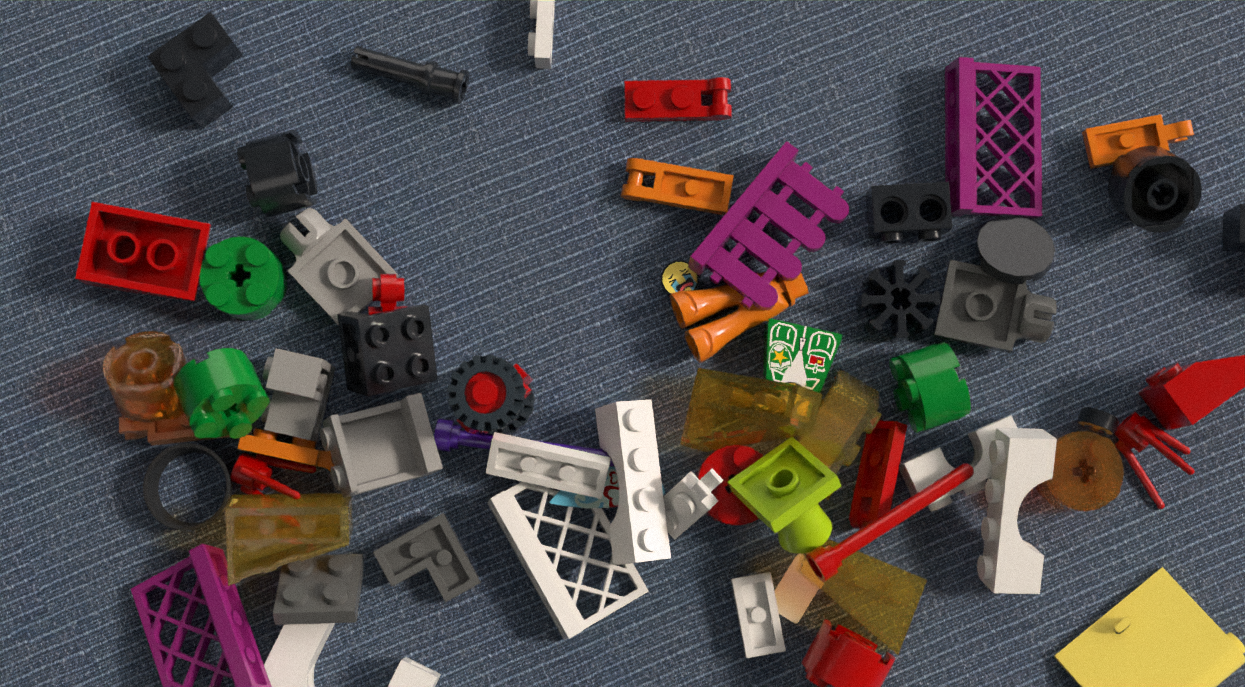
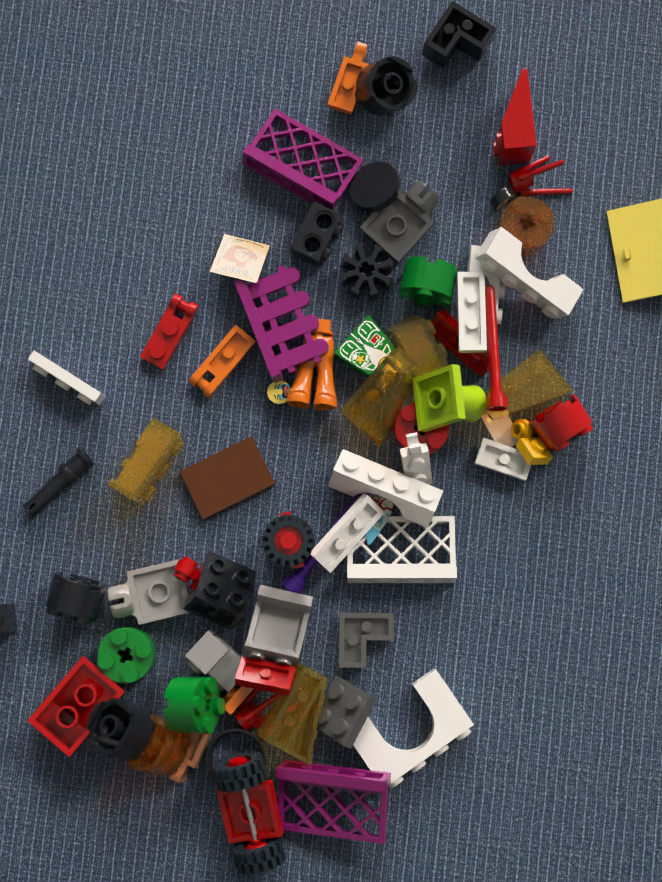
camera: 55 degrees left, 0 degrees up
(127, 542) = (250, 812): none -> plate
(140, 320) = (120, 729): none -> black brick
(307, 464) = (265, 675): none -> red plate
(495, 166) = (148, 462): none -> clear yellow wedge
(534, 276) = (227, 478): none -> reddish brown tile
(791, 639) = (530, 448): none -> yellow plate
(820, 133) = (240, 258): none -> sticker
(922, 464) = (471, 312): none -> white plate

